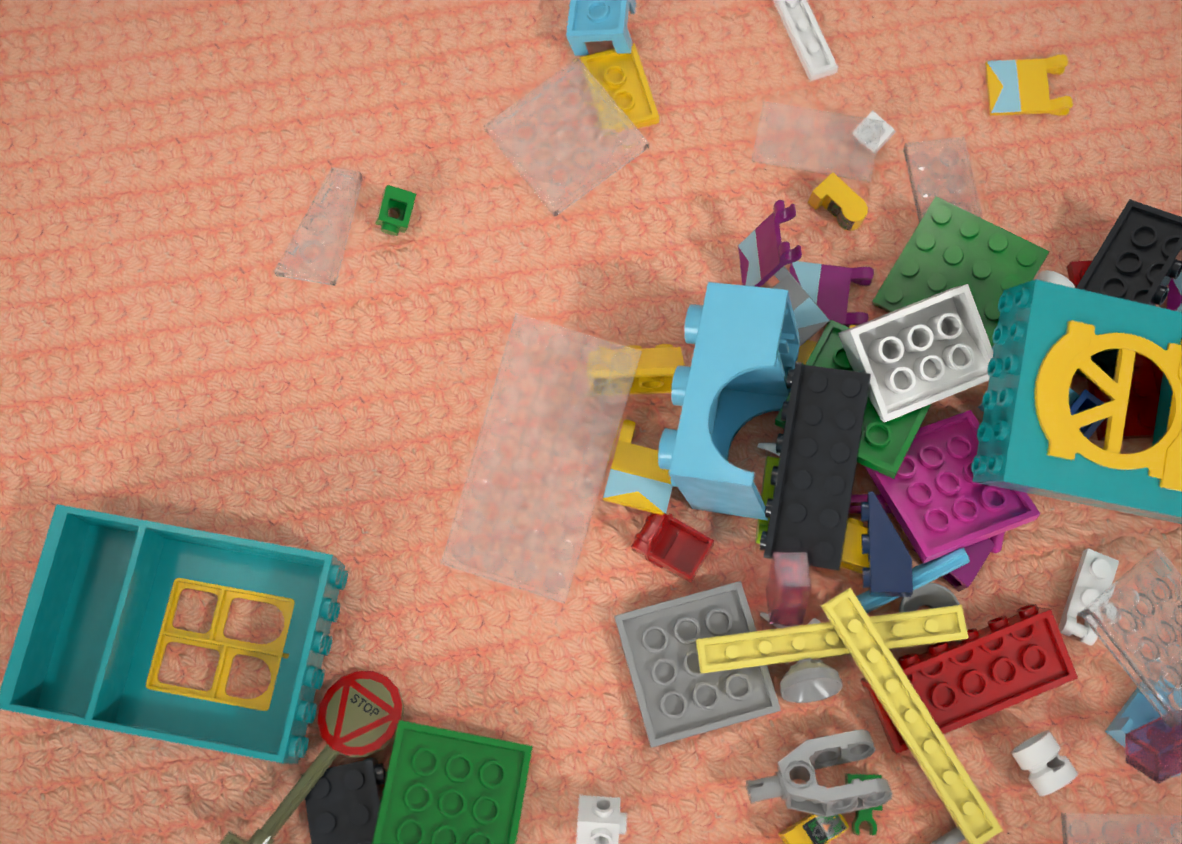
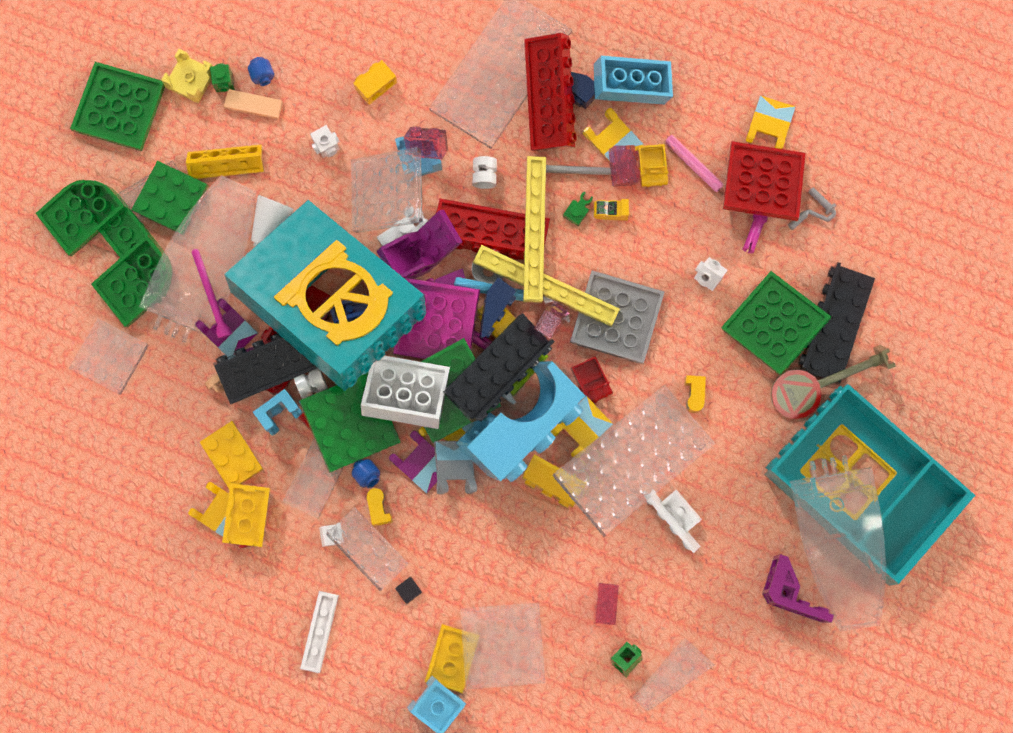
camera: 145 degrees left, 5 degrees up
(174, 521) = (844, 542): none -> clear windscreen
(217, 401) = (782, 577): none -> magenta bracket
(431, 427) = (679, 516): none -> white bracket
(463, 258) = (606, 604): none -> clear pink brick
(504, 609) = (696, 392): none -> yellow leg
(728, 133) = (408, 590): none -> black tile
(763, 251) = (445, 499): magenta flag -> none
(810, 682) = (569, 274): light grey piece -> none
(817, 799) = (605, 223): light grey piece -> none
(887, 233) = (366, 473): none -> blue head
(996, 89) = (246, 515): none -> yellow piece
(1051, 569) = (421, 250): none -> magenta bracket
(1065, 233) = (274, 407): none -> medium azure panel
(1070, 157) = (231, 455): none -> yellow plate

